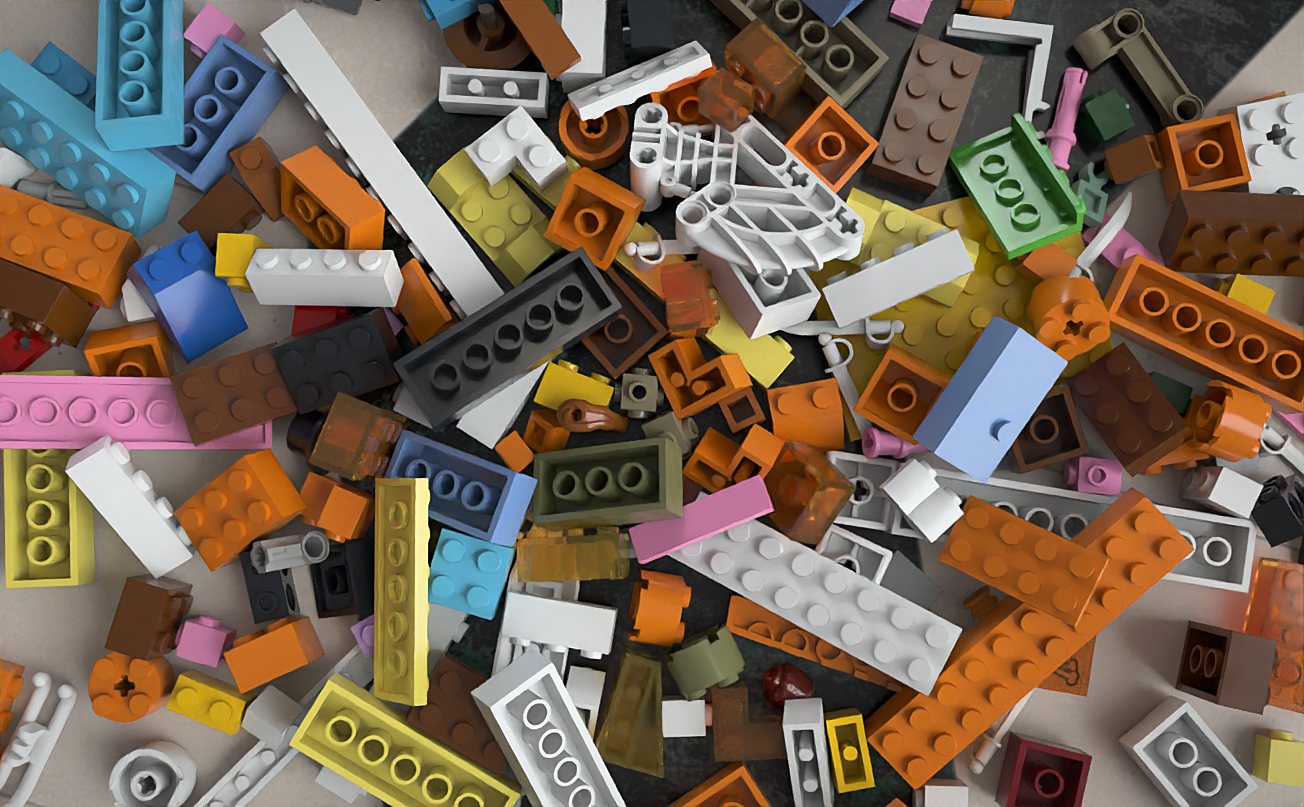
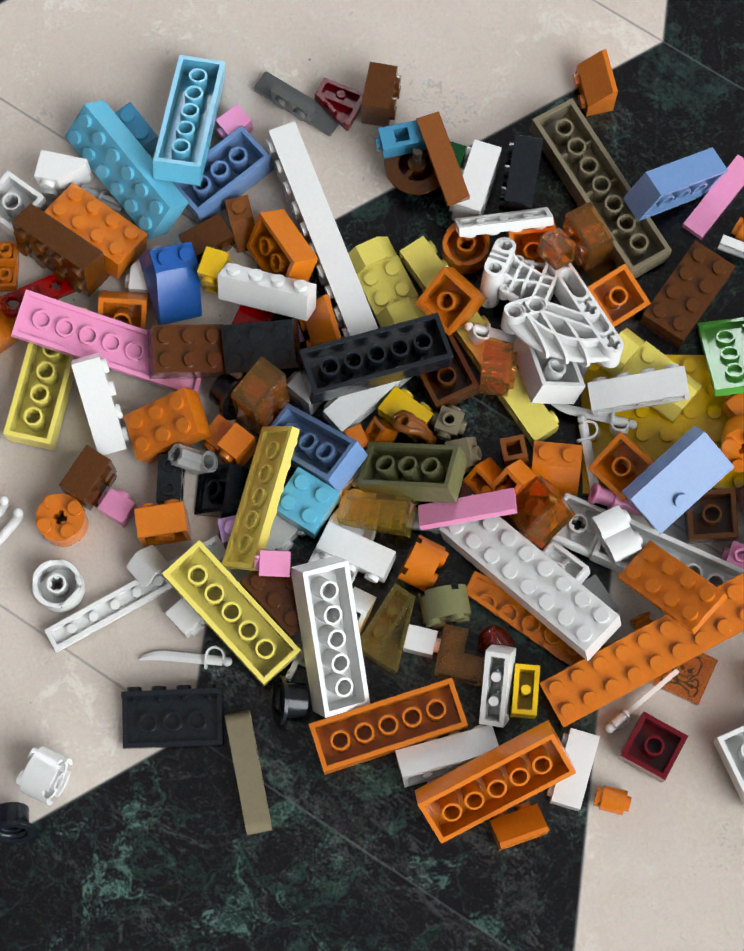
camera: 20 degrees right, 10 degrees down
(210, 701) = (110, 545): yellow brick -> none
(444, 693) = (273, 563): none -> bright pink brick
(493, 91) = (407, 207): white brick -> none
(513, 144) = (412, 241): white brick -> none
(691, 381) = (487, 423): orange brick -> none

